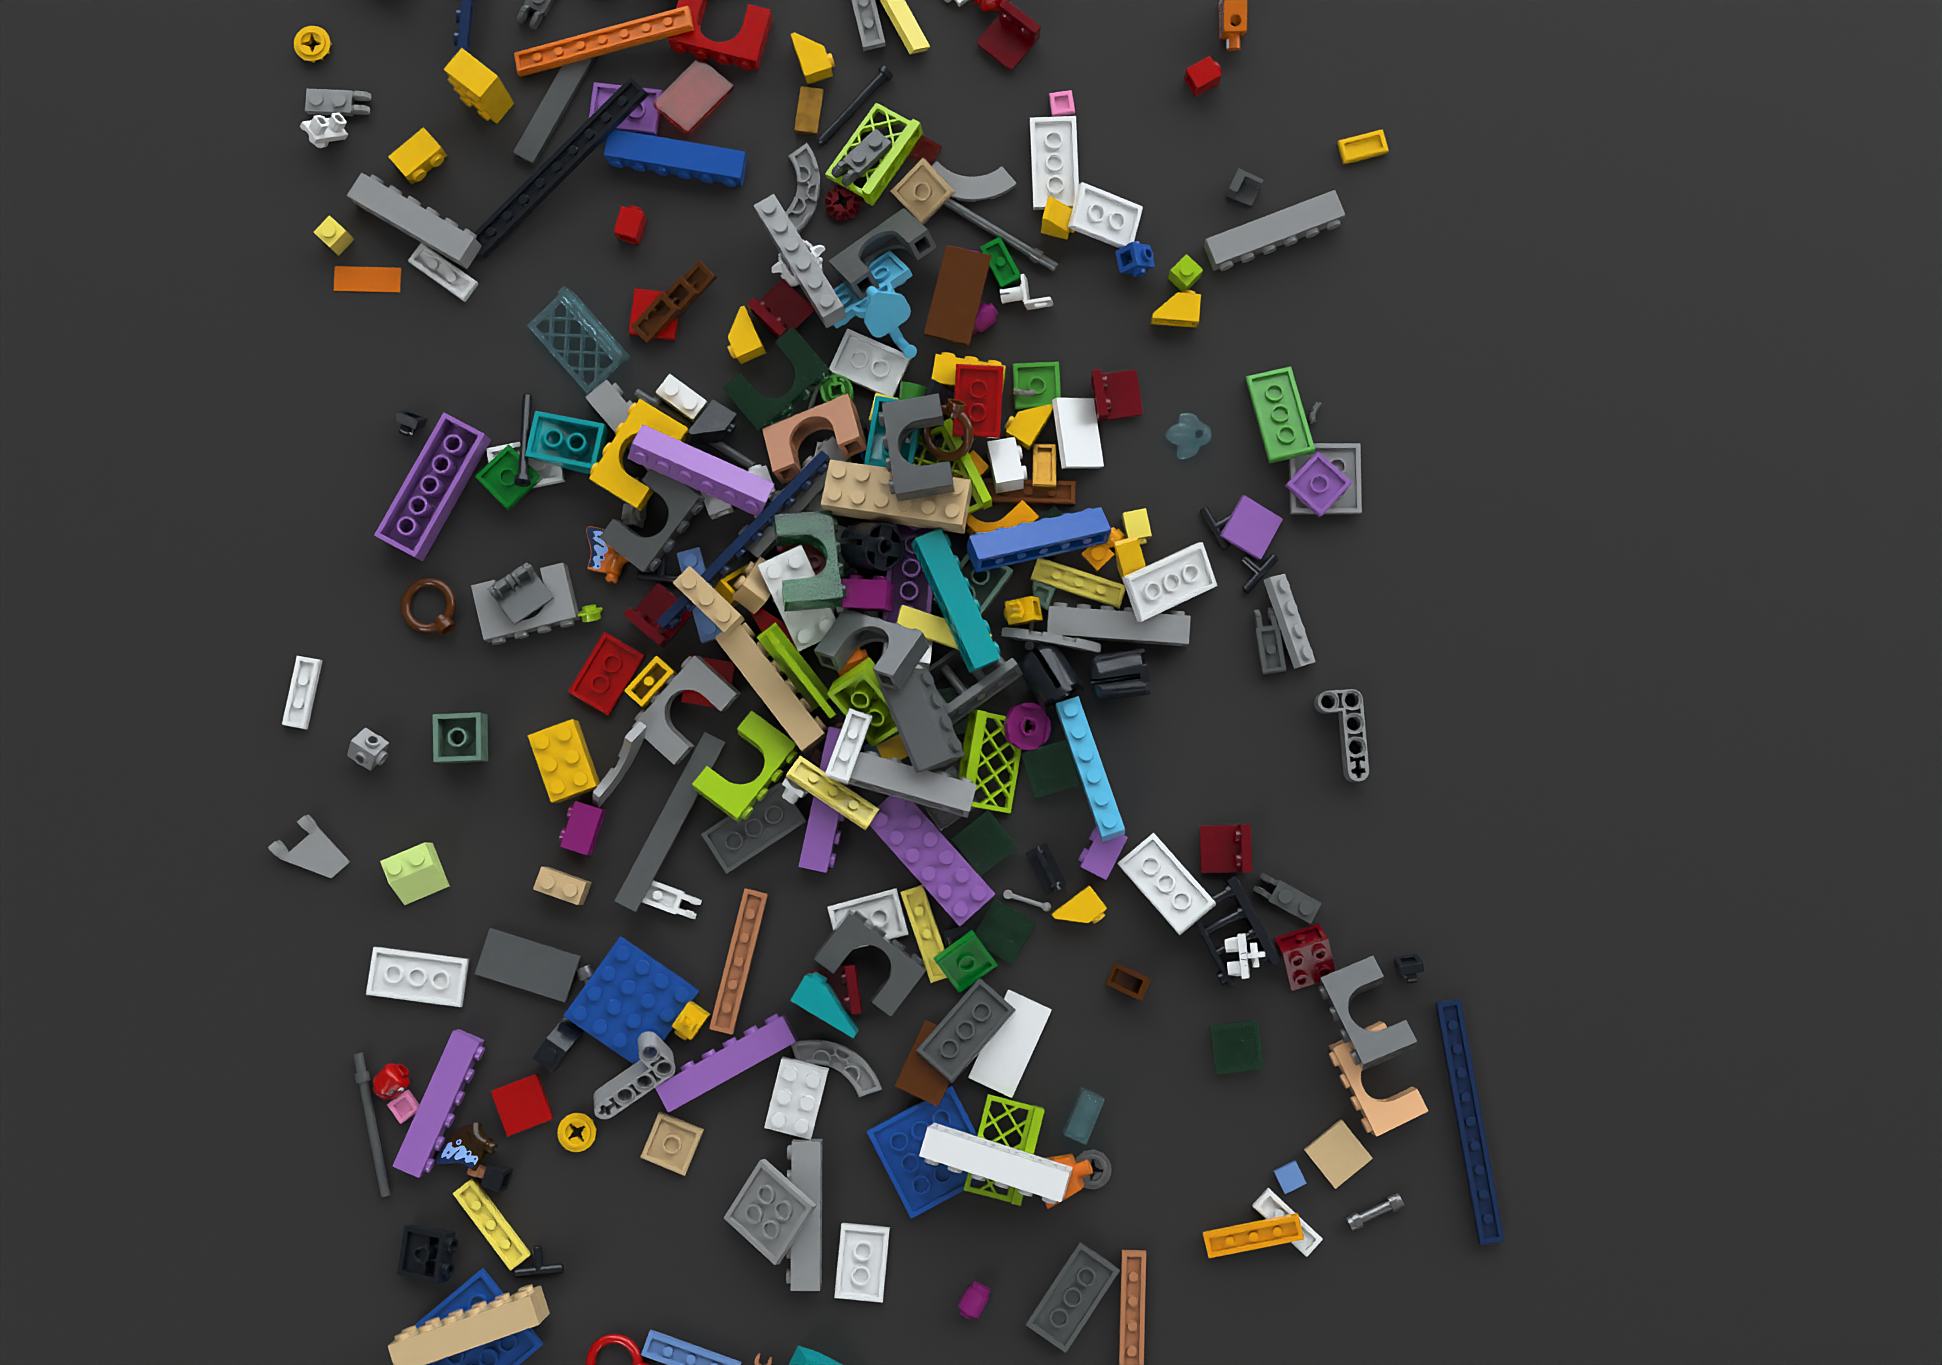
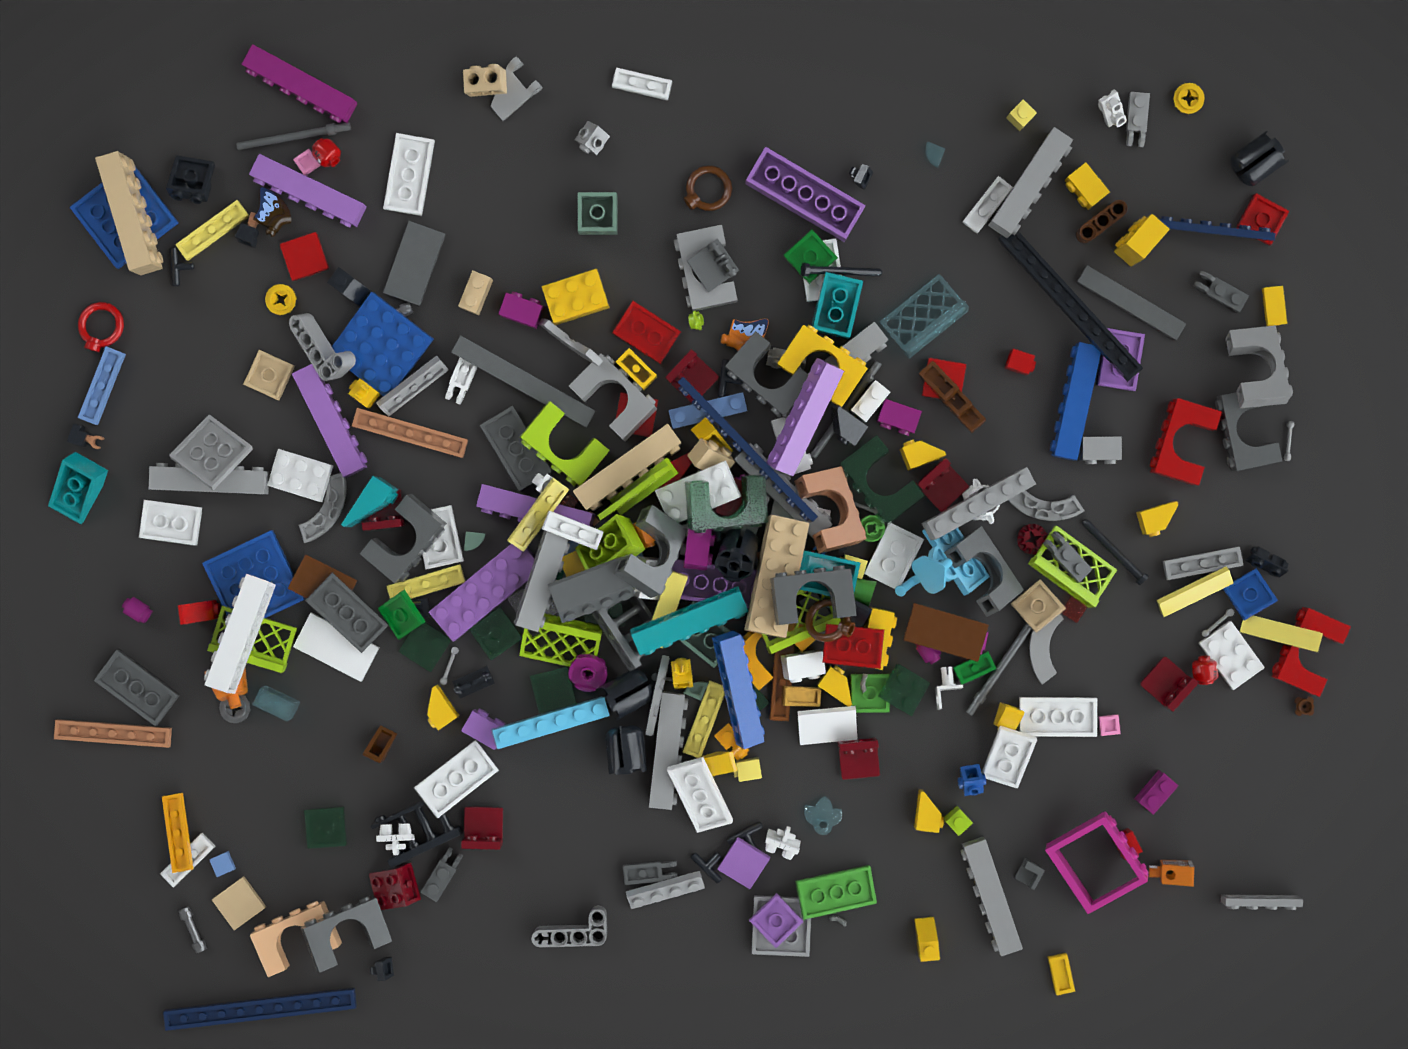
camera: 90 degrees right, 5 degrees up
(305, 885) = (484, 85): none -> tan brick
(306, 1119) = (299, 84): none -> magenta brick
(367, 279) = (985, 141): orange sticker -> none
(382, 337) = (934, 153): none -> clear light blue tile
(415, 873) = (491, 174): yellowish green slope -> none
(453, 129) = (1110, 218): none -> reddish brown beam
(604, 41) = (1178, 344): orange tile -> none
(680, 960) = (412, 386): none -> light grey plate
(693, 96) = (1129, 417): clear red tile -> none
(701, 364) = (898, 417): none -> magenta brick
(708, 600) = (696, 420): tan brick -> none
(731, 125) = (1100, 448): none -> light grey brick
(809, 111) = (1112, 513): pearl gold tile -> none
(870, 876) = (473, 540): none -> sand green tile
(971, 1217) = (198, 611): none -> red slope
(1030, 344) = (904, 689): none -> clear green plate
(1138, 44) = (1156, 792): none -> magenta brick
(1189, 128) = (1071, 878): none -> dark pink window
(1220, 480) = (782, 840): none -> white hips
(1331, 304) = (927, 939): none -> yellow slope

